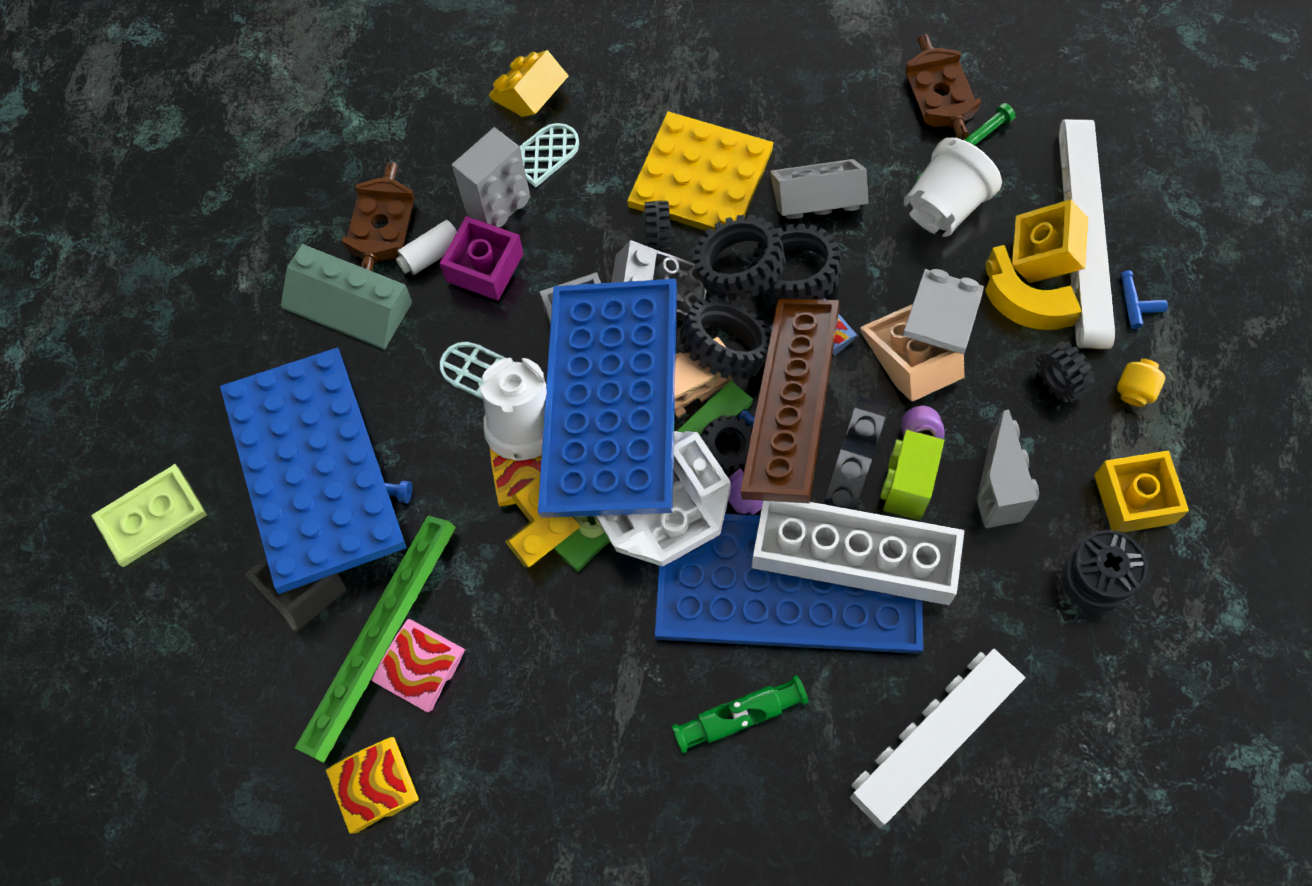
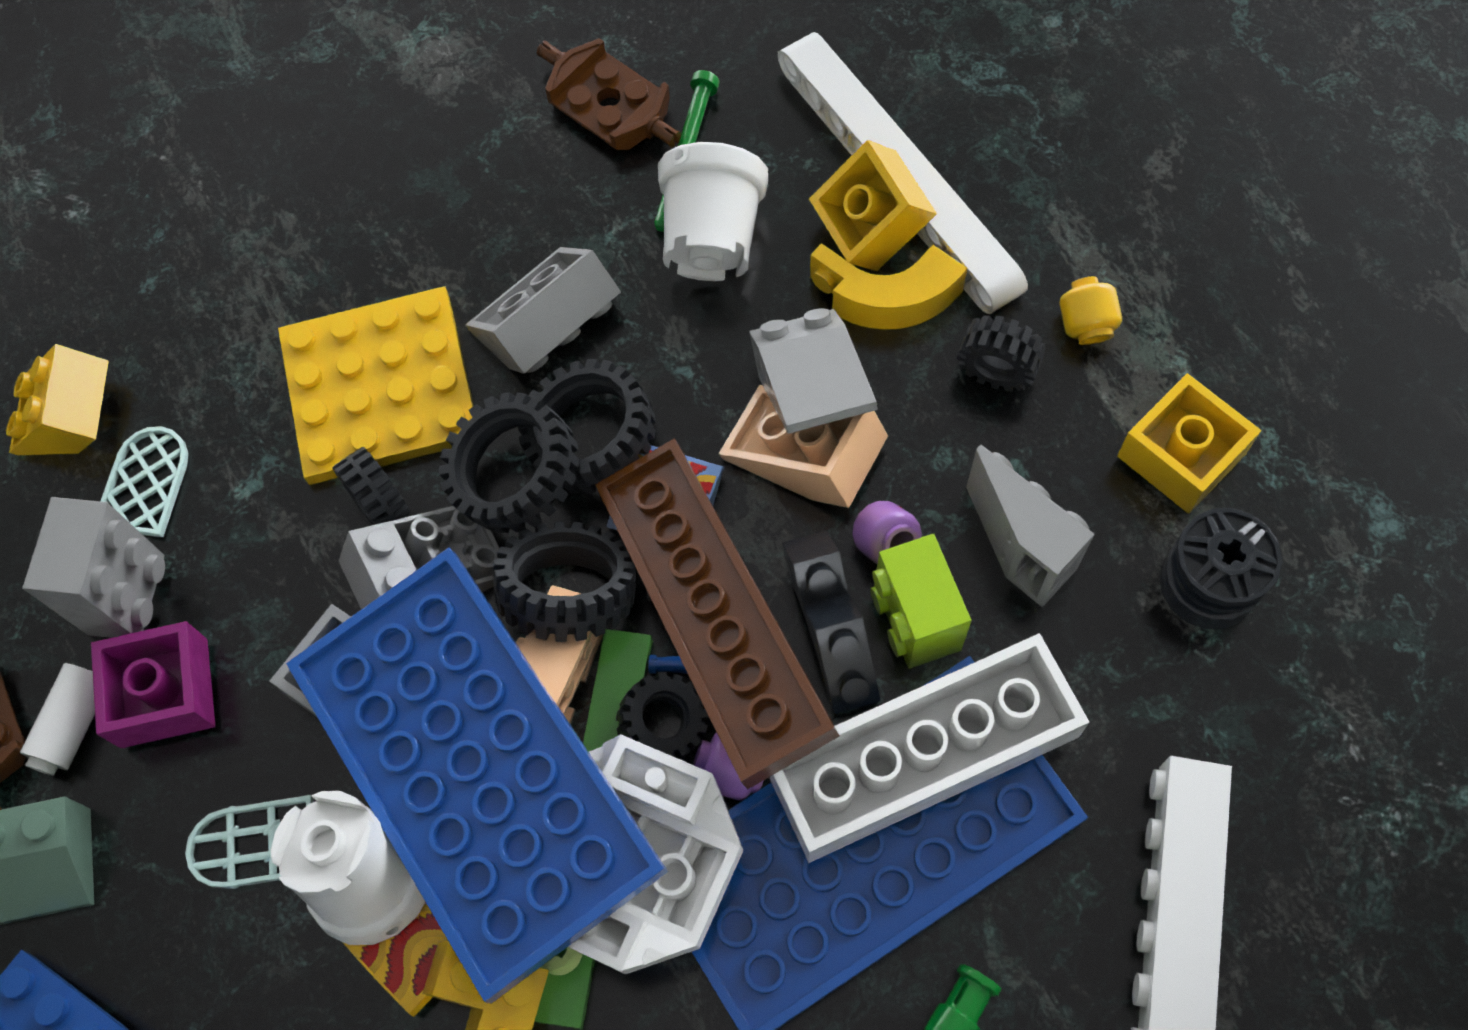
camera: 35 degrees left, 0 degrees up
(1135, 306) = (1017, 224): blue piece -> none

